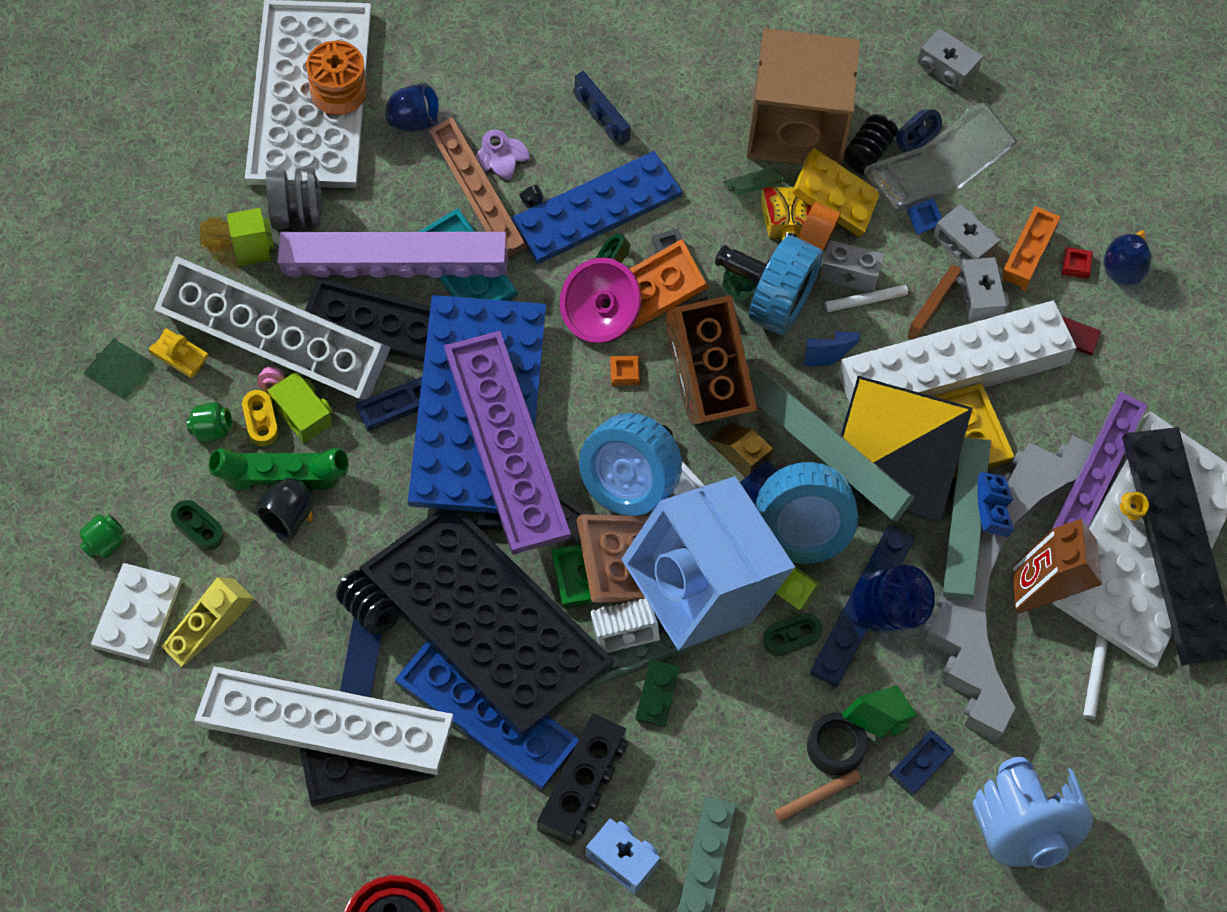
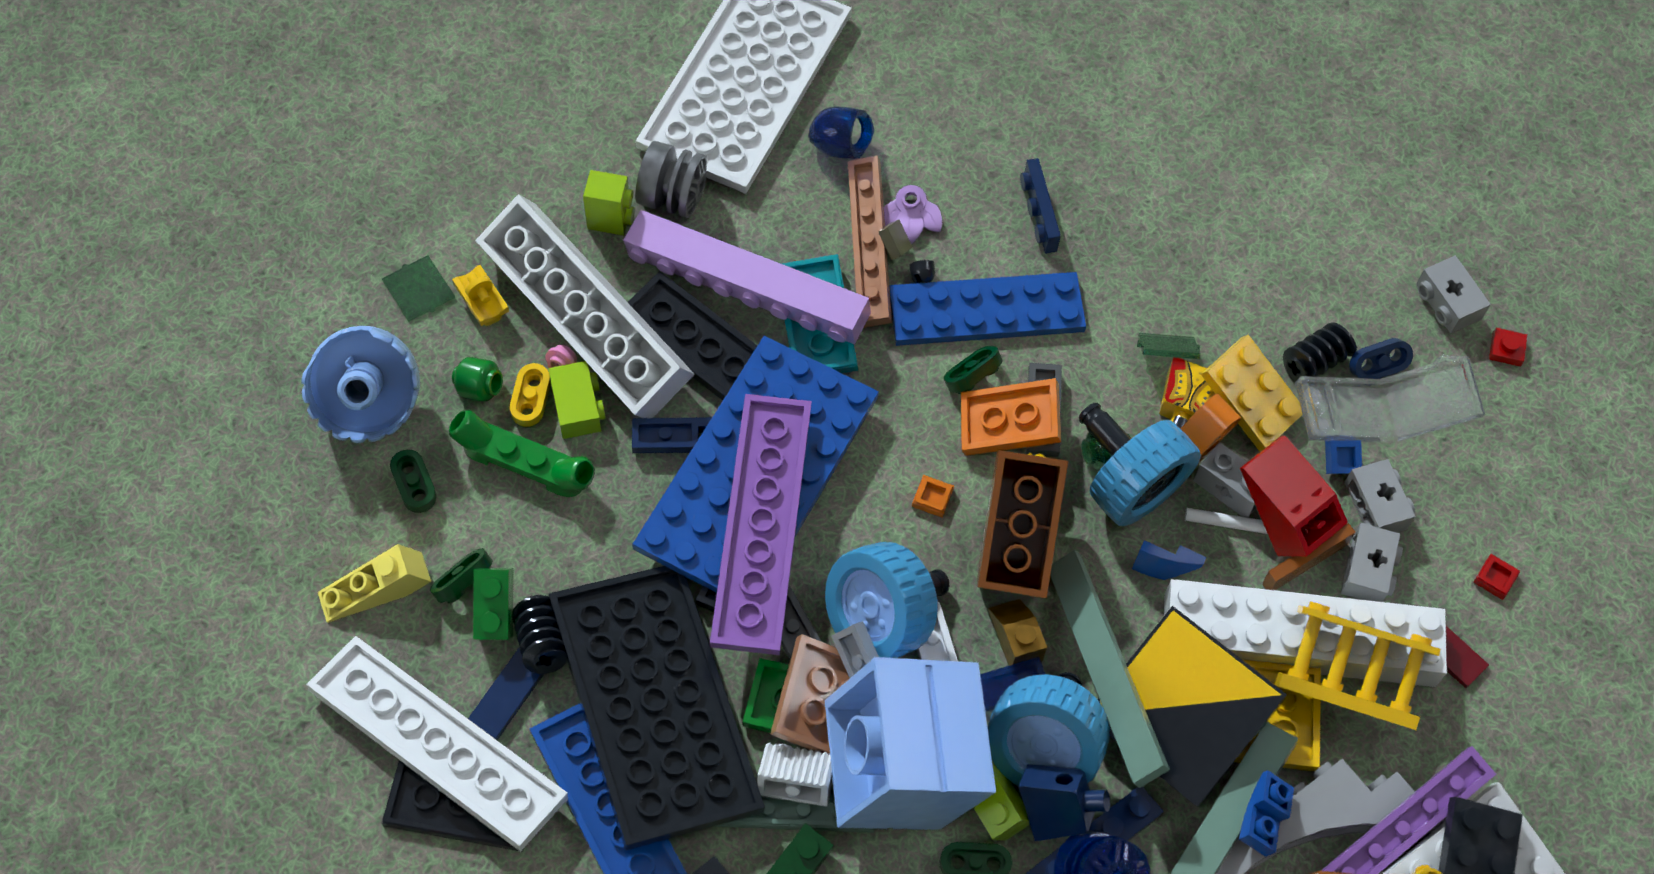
camera: 25 degrees right, 0 degrees up
(101, 536) = (313, 453): green head -> none
(120, 461) = (361, 384): none -> light blue piece
(136, 613) = (310, 547): white plate -> none
(215, 234) = (573, 185): clear yellow gear -> none
(277, 583) = (453, 582): none -> dark green plate
(285, 503) = (508, 499): black piece -> none
(317, 593) = (493, 603): none -> green brick
(336, 77) = (774, 70): orange wheel -> none
(498, 178) = (895, 239): none -> olive tile
(585, 295) = (927, 400): dark pink dish -> none
(629, 510) = (854, 647): none -> light grey plate
(802, 96) = (1259, 273): medium nougat piece -> none
(838, 559) = (1059, 801): none -> dark blue torso
(905, 262) = (1292, 499): none -> red slope
(1007, 85) = (1508, 347): none -> red plate
(1026, 390) = (1365, 699): none -> yellow fence
(1030, 247) = (1447, 538): orange container -> none
(1128, 258) = (1557, 595): clear blue piece -> none

